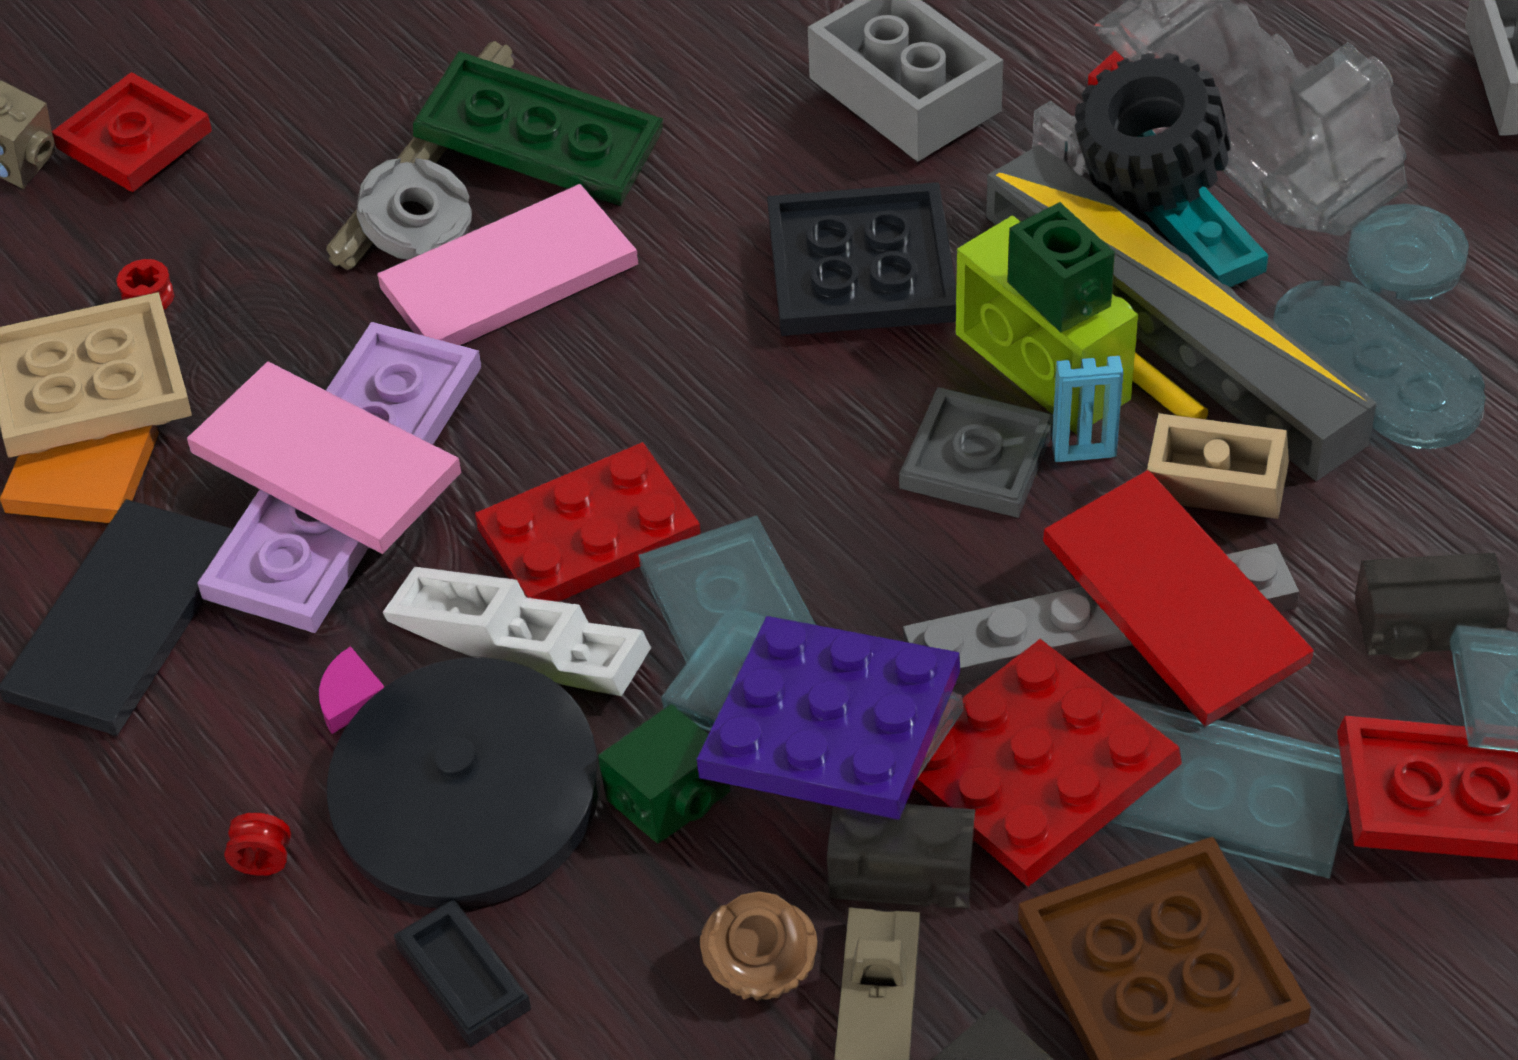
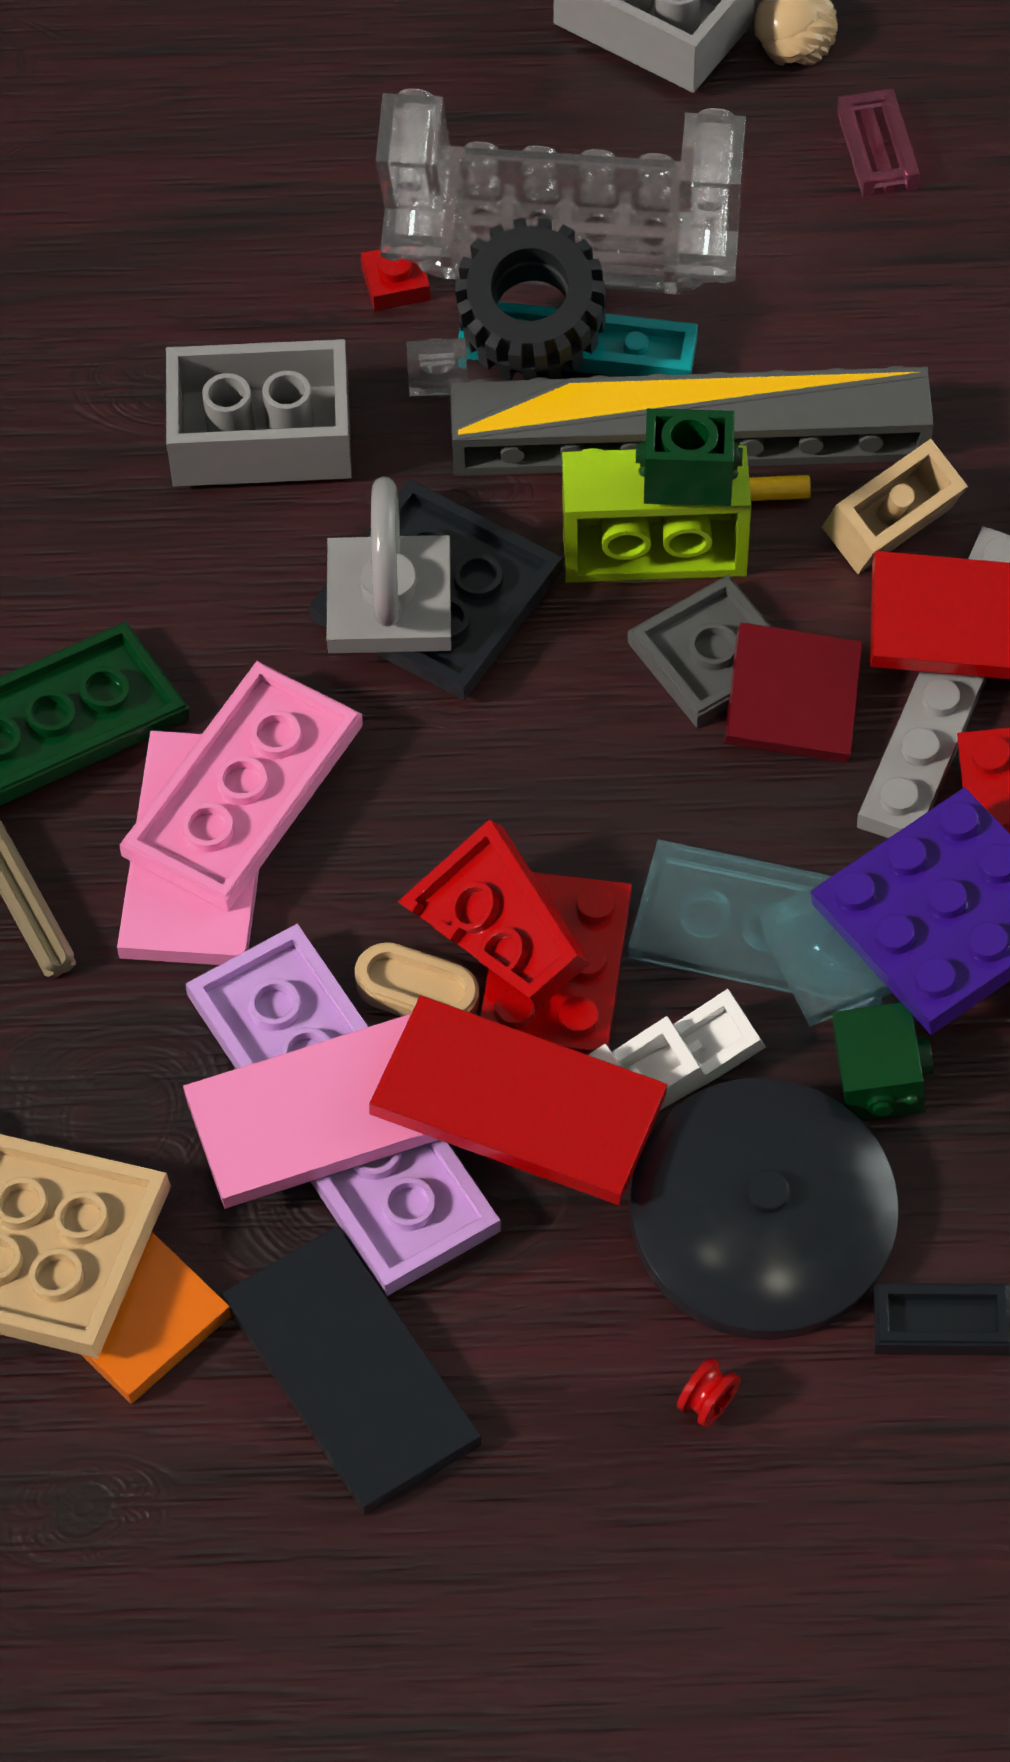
camera: 55 degrees left, 10 degrees up
(345, 689) = (586, 1239): dark pink tile -> none
(409, 553) = (518, 1099): none -> red tile
(421, 182) = (59, 899): light grey tile -> none
(495, 455) = (396, 976): none -> tan tile
(573, 253) = (241, 786): none -> bright pink tile
(579, 450) = (499, 914): none -> red wing
(820, 218) = (388, 587): none -> light grey tile
(975, 515) = (793, 692): none -> dark red tile
(1086, 379) = (771, 547): medium azure tile -> none
(1408, 251) = (774, 239): clear light blue tile -> none
(1420, 384) = (854, 330): clear light blue tile -> none

